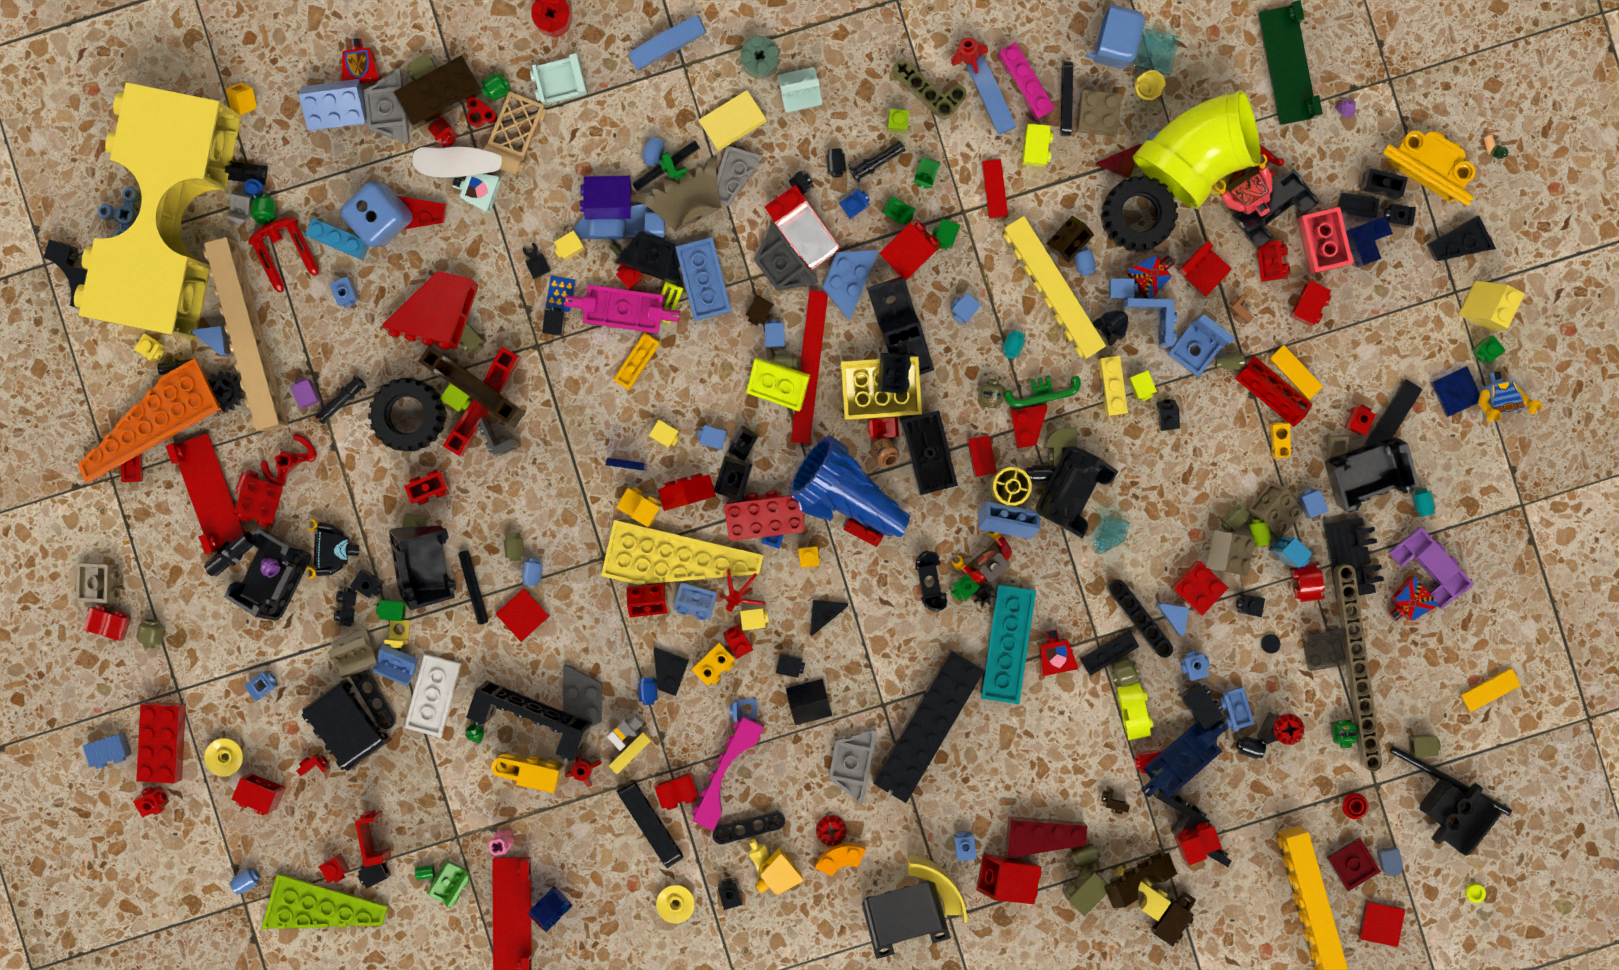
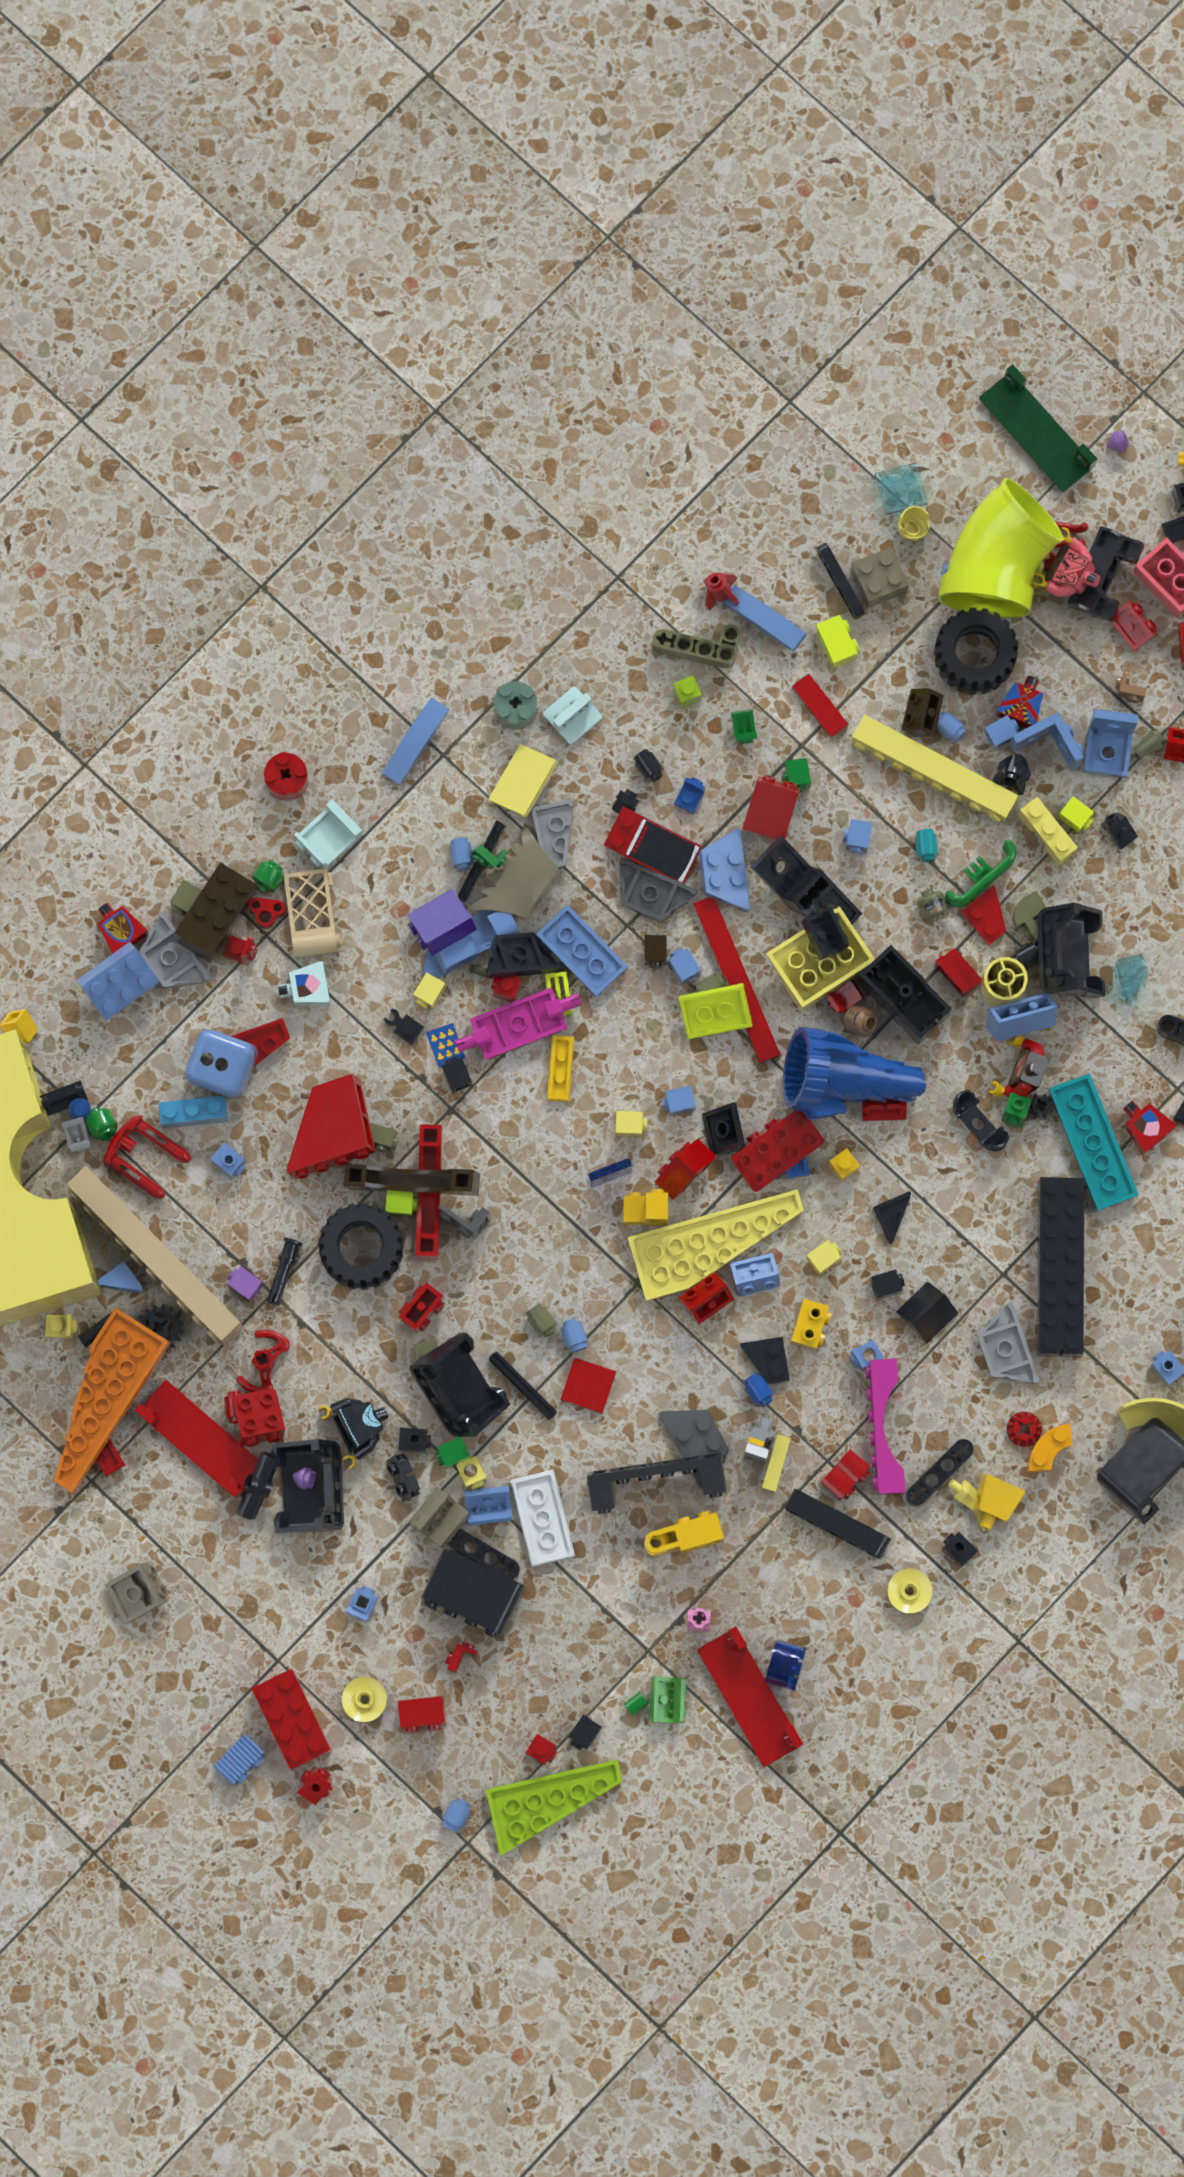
camera: 25 degrees left, 10 degrees down
(107, 623) = (169, 1629): red brick -> none
(150, 633) = (219, 1613): olive head -> none
(369, 855) = (577, 1712): red panel -> none
(455, 161) = (269, 971): white sticker -> none
(474, 733) = (607, 1531): green plate -> none
(588, 768) = (737, 1513): red brick -> none
(736, 597) = (793, 1242): red plant -> none
(737, 641) = (821, 1289): red bracket -> none
(743, 443) = (713, 1088): black slope -> none
(867, 165) = (685, 752): black pin -> none
(898, 211) = (737, 778): green bracket -> none
(1030, 87) = (805, 593): dark pink arch -> none
(1118, 37) = (857, 494): medium blue piece -> none
(1120, 163) = (929, 613): dark red tile -> none
(1204, 269) = (1071, 669): red bracket -> none

